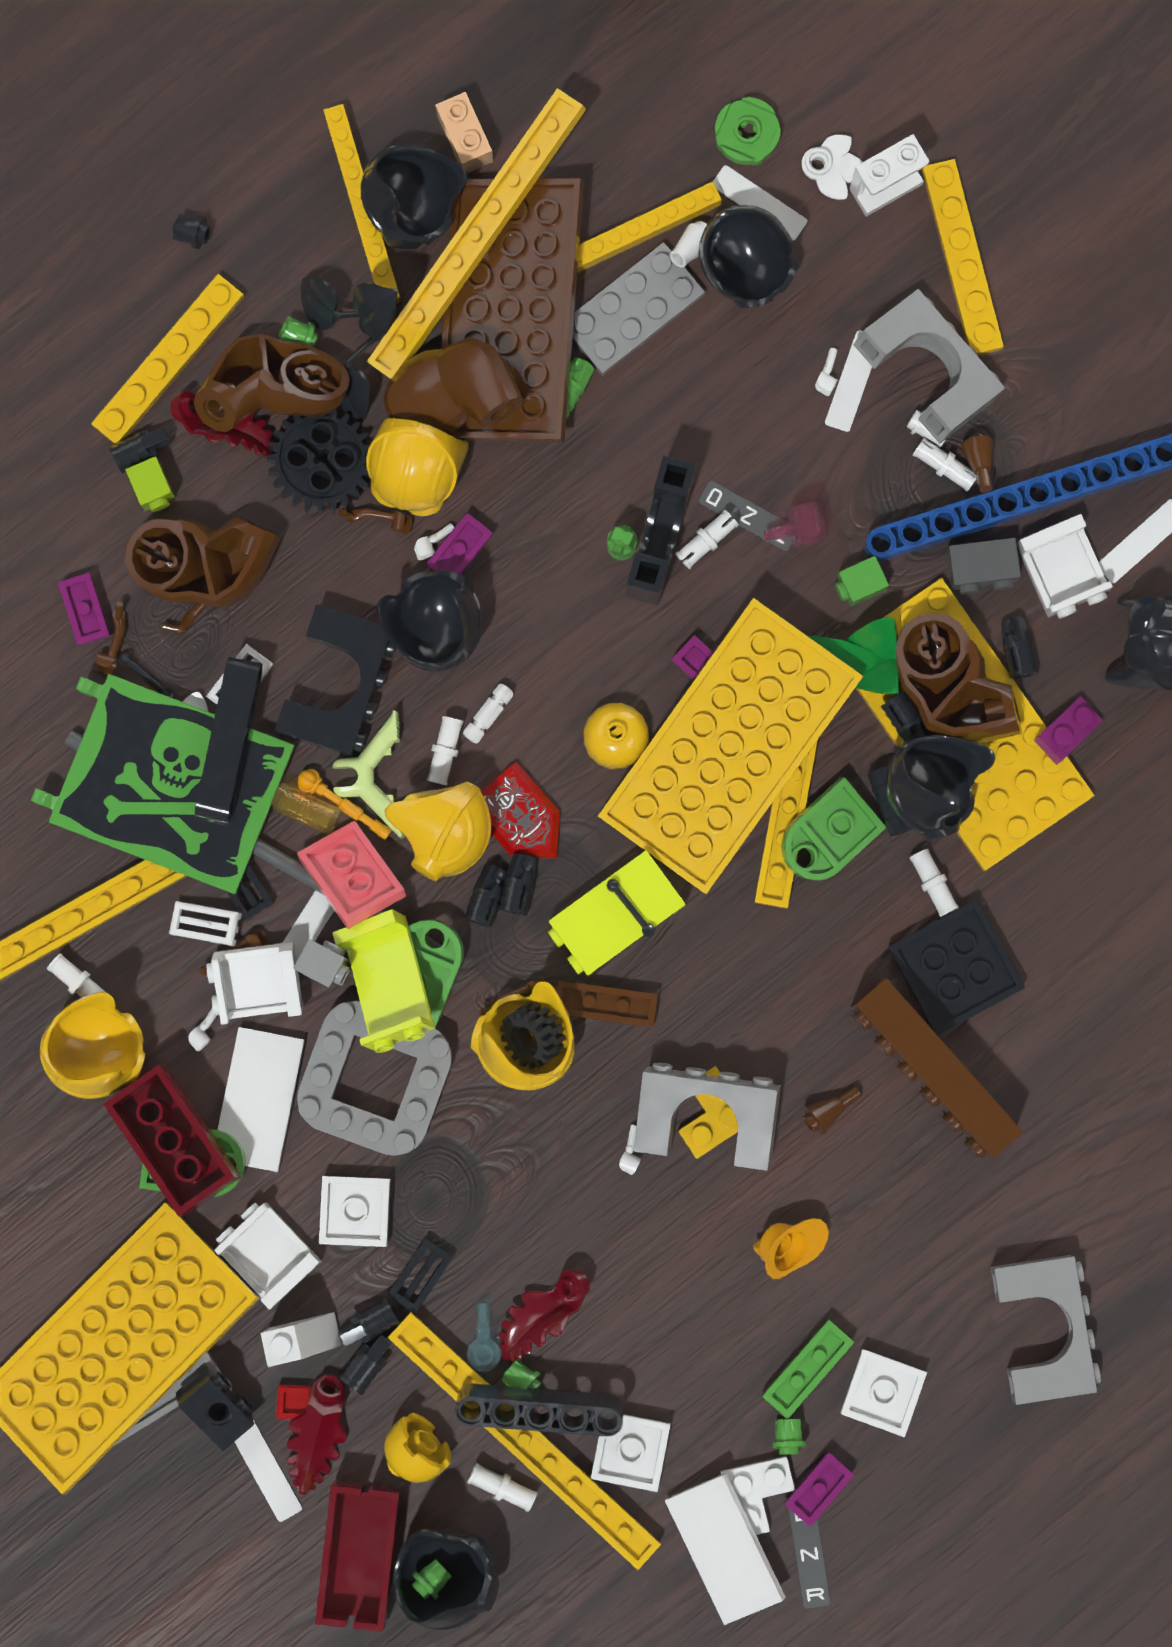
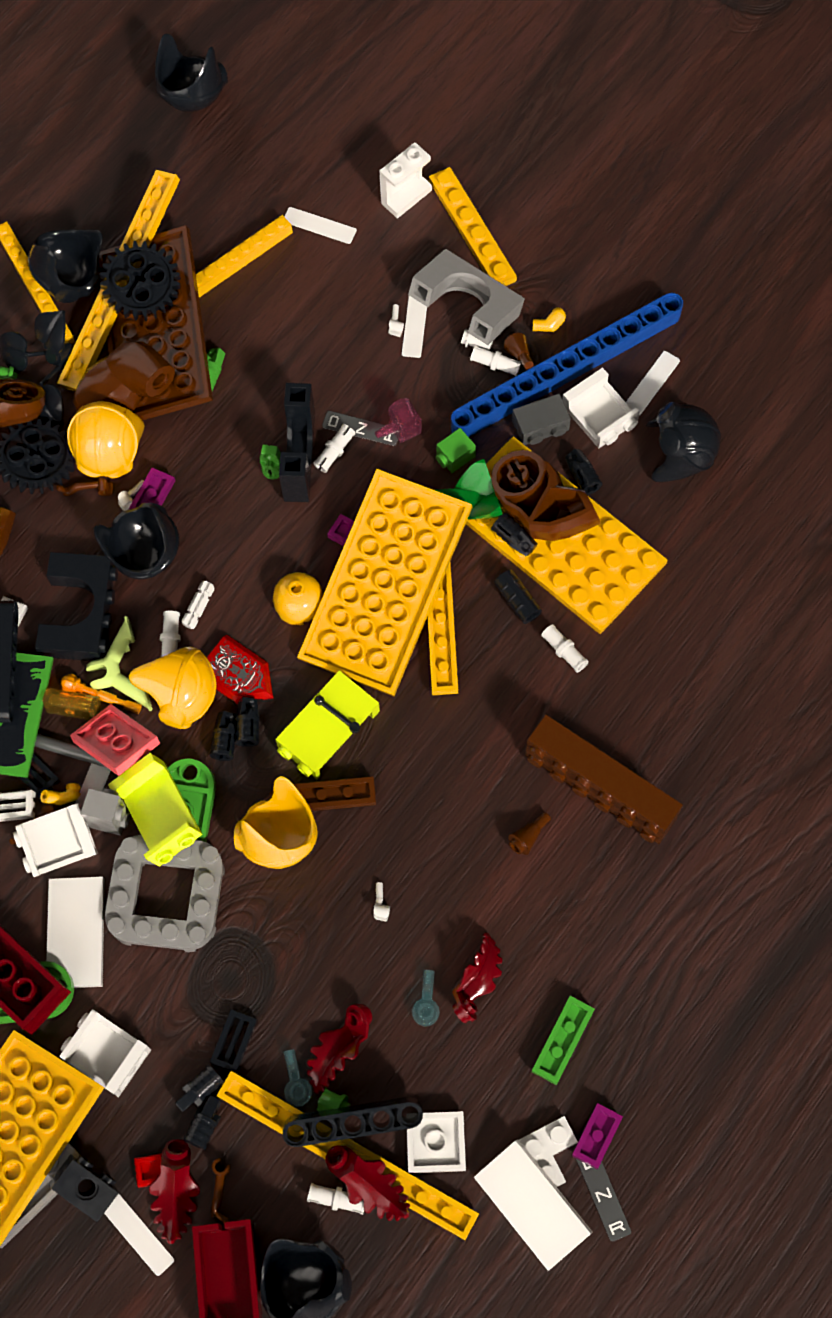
camera: 15 degrees left, 15 degrees down
(198, 1037) = (17, 893): white hand -> none
(271, 928) = (61, 798): none -> yellow arm
(300, 1339) = (143, 1112): white slope -> none
(354, 1211) = (169, 1001): white plate -> none
(367, 1447) = (218, 1191): none -> reddish brown piece
(415, 1451) = (257, 1184): yellow cylinder -> none
(431, 1580) = (293, 1290): bright green hose -> none
(464, 132) = (94, 215): light nougat brick -> none
(524, 274) = (122, 269): none -> black gear
(542, 1027) = (289, 816): black tyre -> none
(542, 1481) = (367, 1183): none -> dark red plant
(633, 309) = (245, 309): light grey plate -> none
(654, 1294) = (426, 1011): none -> clear light blue plate
(688, 245) = (279, 255): white cone -> none
(711, 1127) = (445, 857): yellow plate -> none
(723, 1275) = (477, 980): none -> dark red plant
(740, 114) = (303, 192): bright green plate -> none
(747, 255) = (318, 250): black piece -> none
(752, 1102) = (396, 846): light grey arch -> none
(788, 1436) = (561, 1099): bright green hose -> none
(791, 1246) = (525, 944): light orange piece -> none
(832, 831) = (478, 627): bright green plate -> none
(837, 168) = (368, 190): white plate -> none
(883, 1392) = (628, 1044): white plate -> none
(933, 782) = (543, 566): black piece -> none
(956, 967) = (598, 703): black plate -> none
(1033, 424) = (551, 323): none -> yellow arm
(1068, 730) = (635, 518): magenta plate -> none
(1072, 1368) = (743, 923): light grey arch -> none

